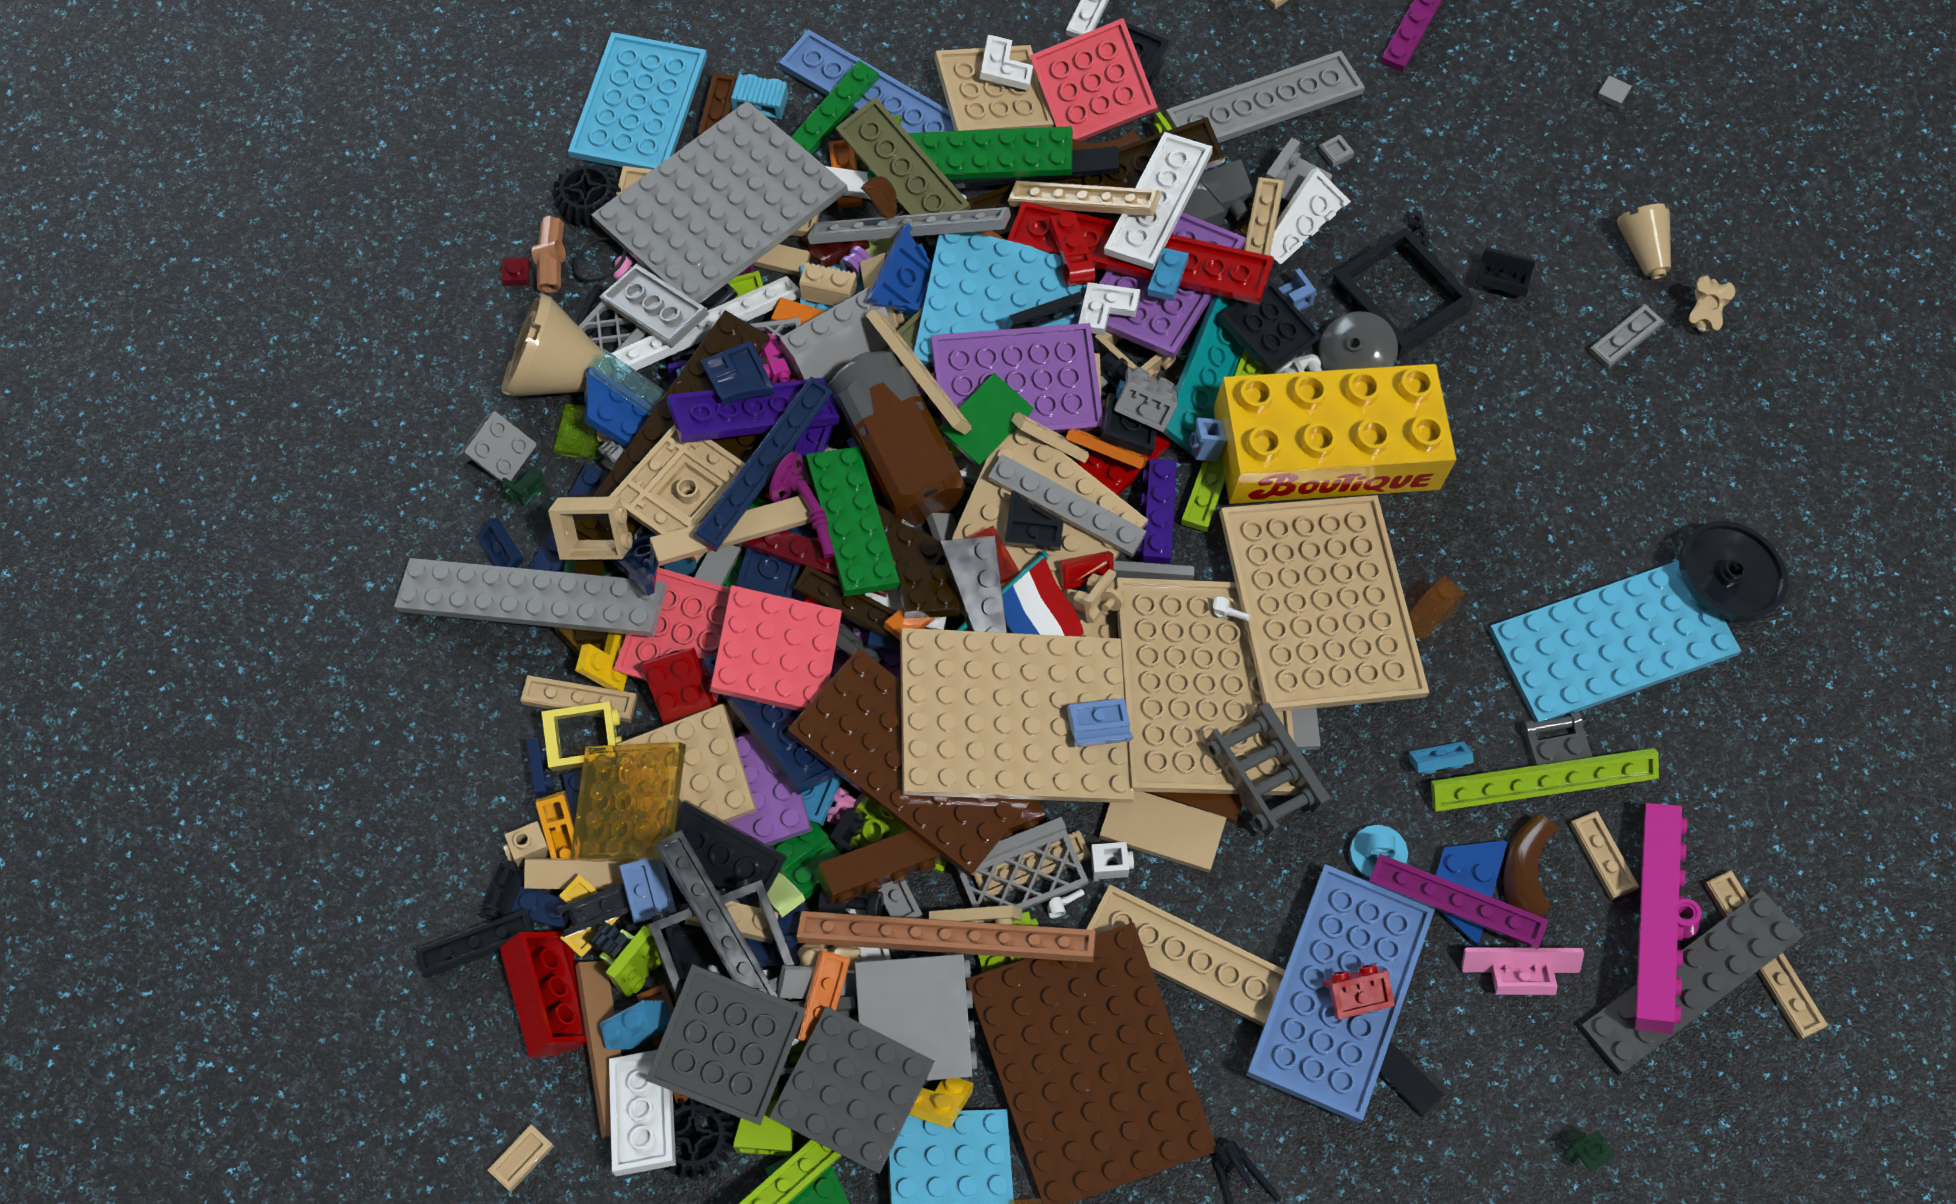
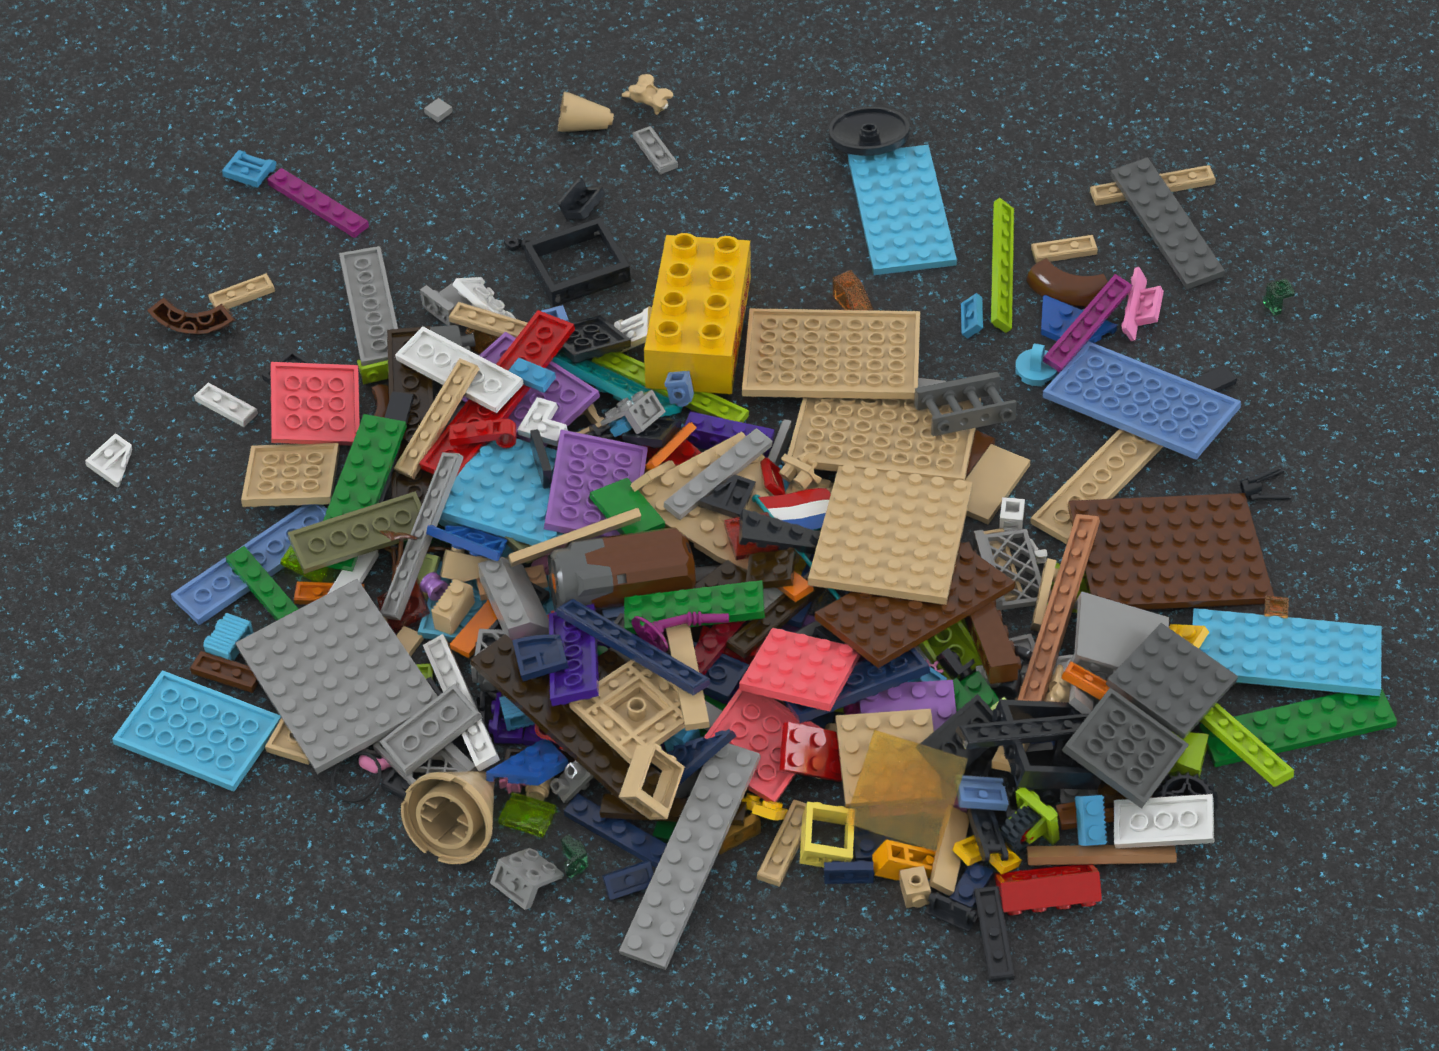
camera: 75 degrees left, 15 degrees down
(515, 271) = (344, 845): dark red plate -> none
(520, 1158) = (1180, 923): tan tile -> none
(549, 255) = (339, 812): nougat piece -> none
(573, 187) = (281, 772): black gear -> none
(627, 382) = (511, 747): clear light blue plate -> none
(1000, 69) = (272, 462): white plate -> none
(1099, 722) = (912, 480): medium blue plate -> none
(1222, 609) = (827, 406): white hand -> none
(1336, 151) = (429, 277): light grey tile -> none
(1360, 991) = (1147, 381): red bracket -> none
(1376, 338) = (617, 304): dark grey dish -> none
(1557, 748) = (979, 254): dark grey plate -> none
(1662, 919) = (1121, 222): dark pink hinge -> none

